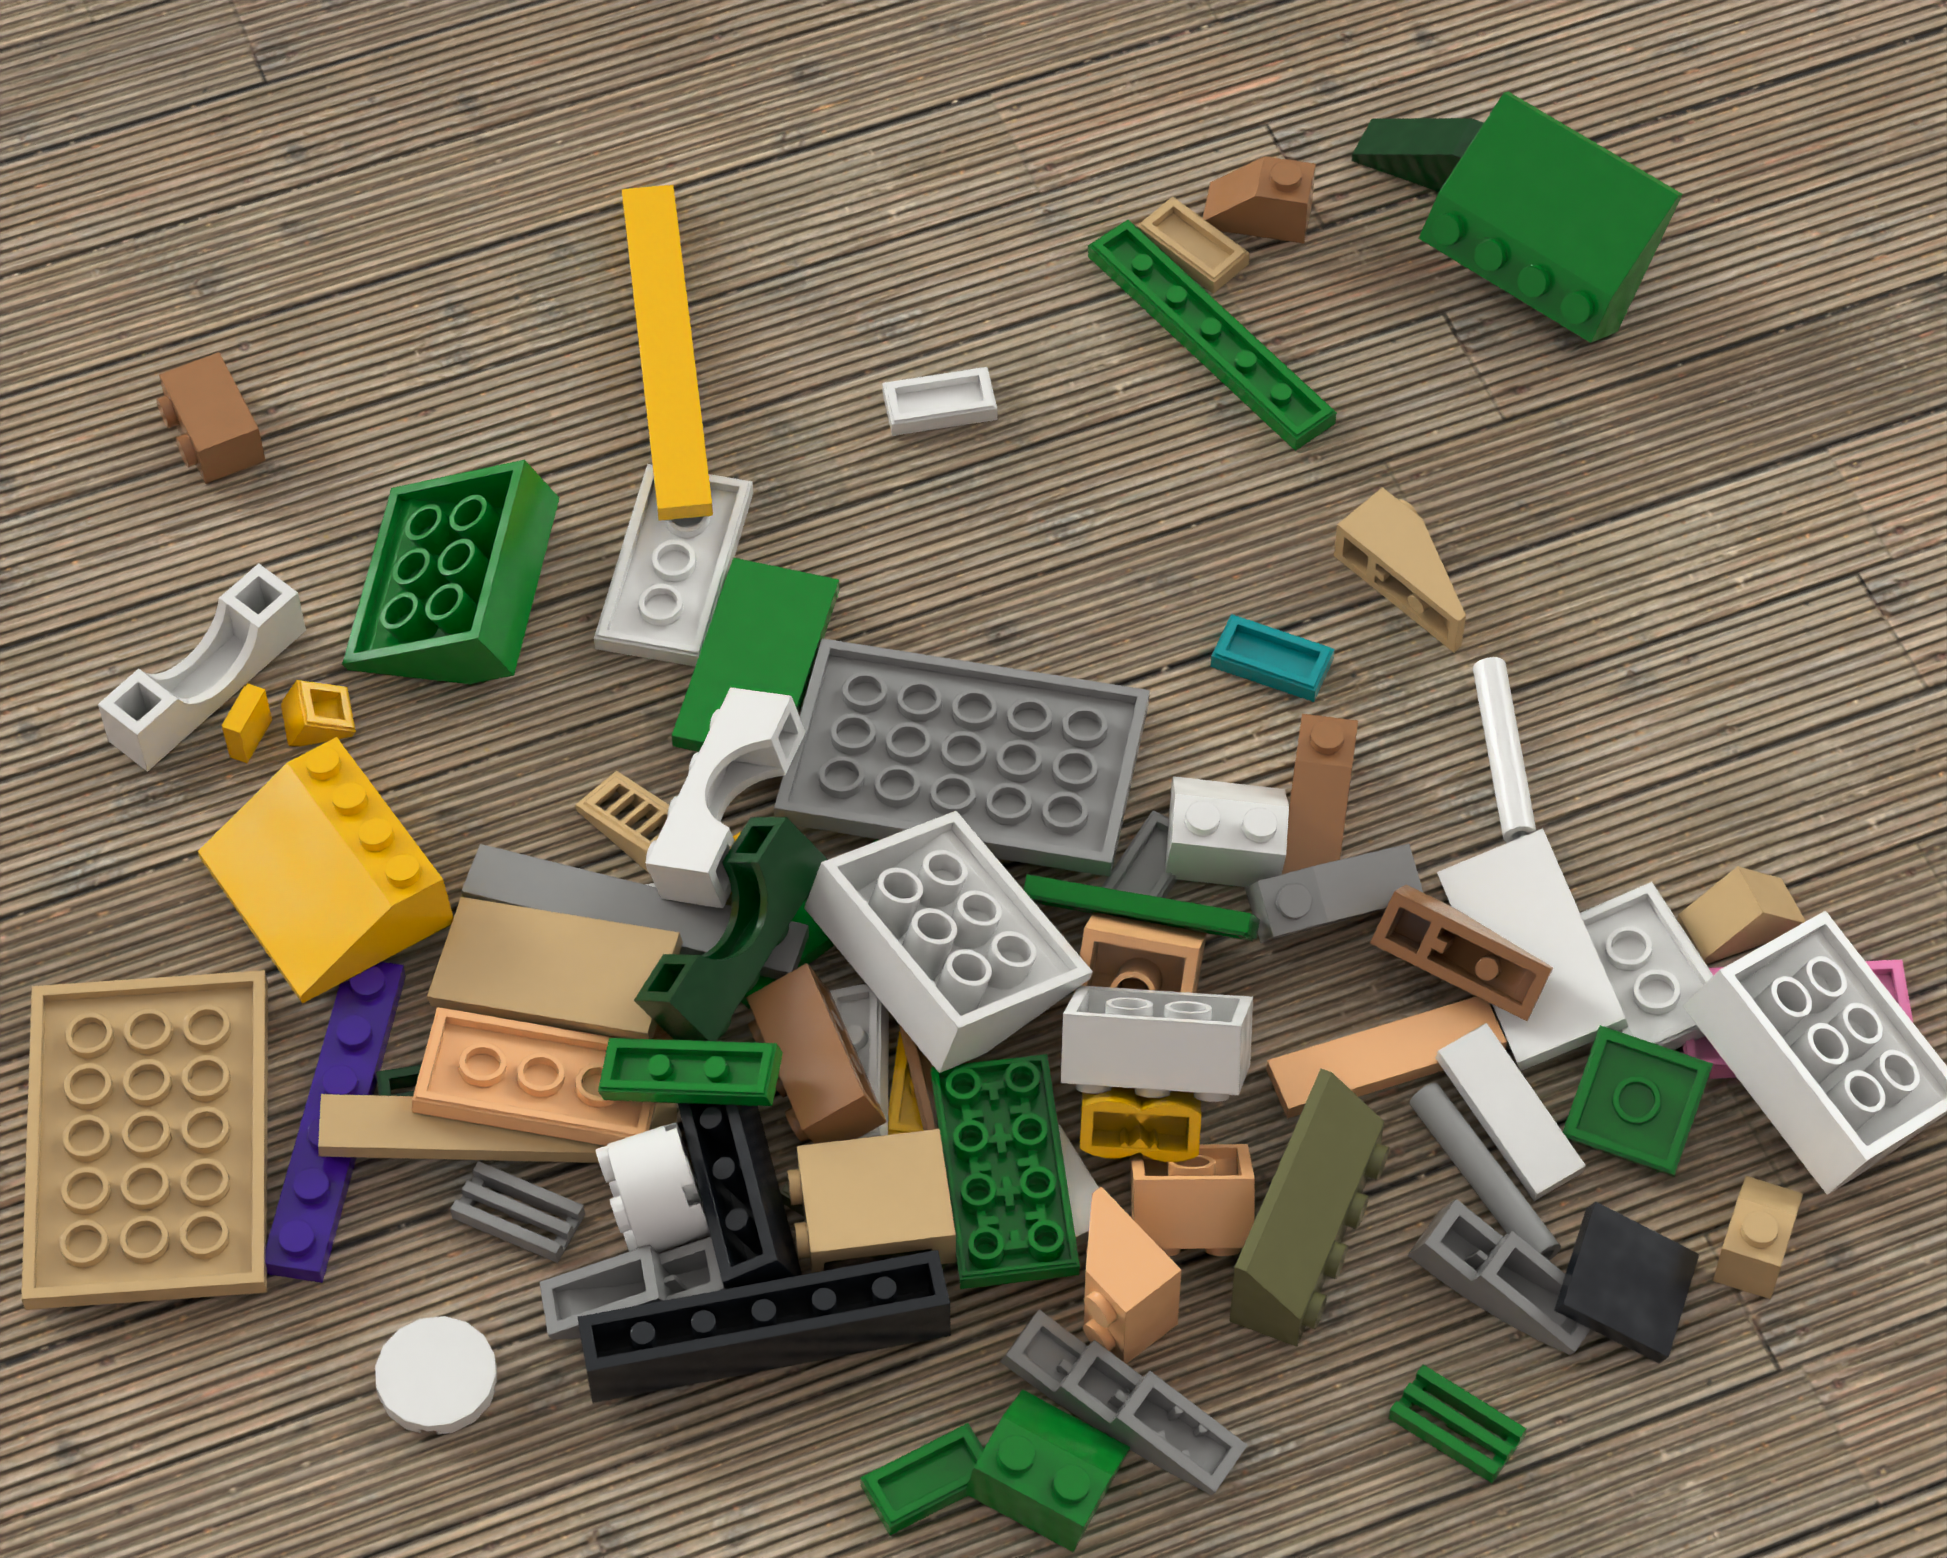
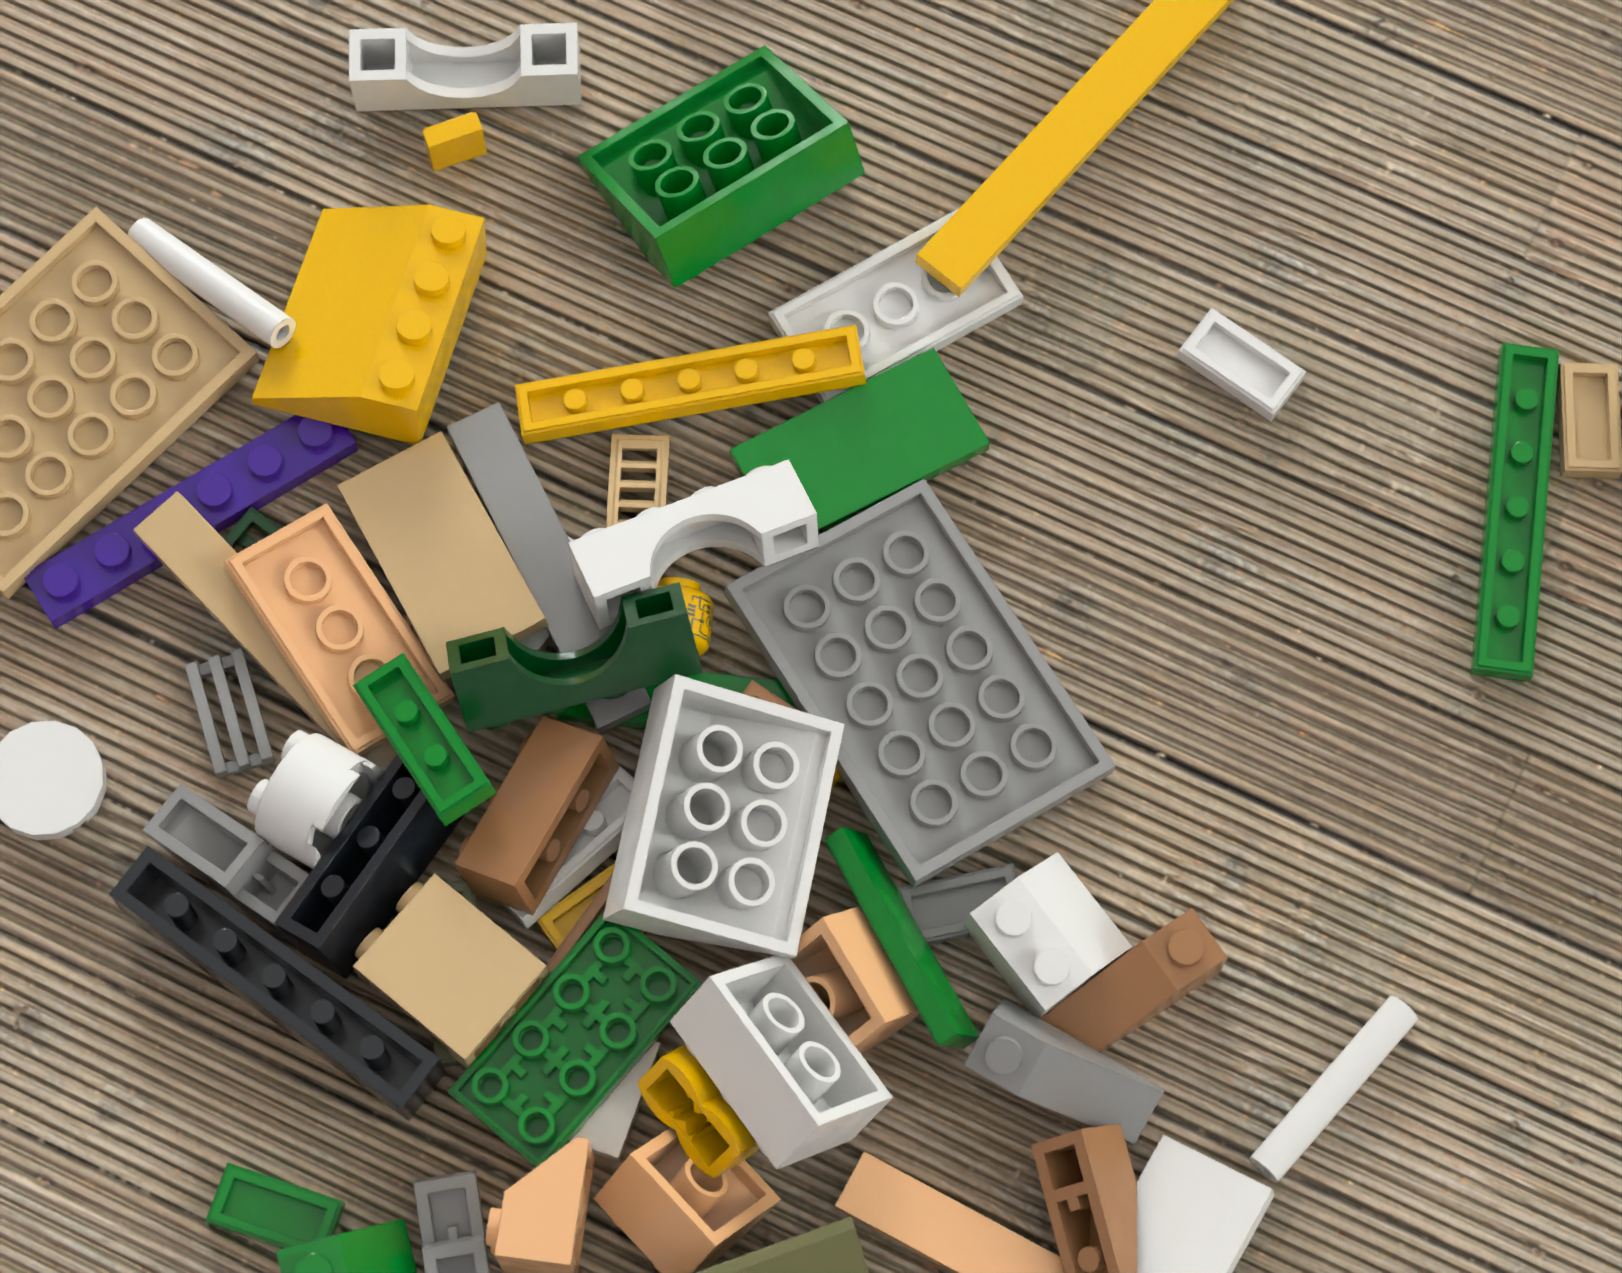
camera: 45 degrees right, 15 degrees up
(186, 953) = (214, 284): none -> white piece
(316, 713) = (518, 180): yellow slope -> none
(595, 723) = (690, 384): none -> yellow tile
(1272, 657) = (1248, 830): teal tile -> none
(1395, 555) = (1435, 838): tan slope -> none

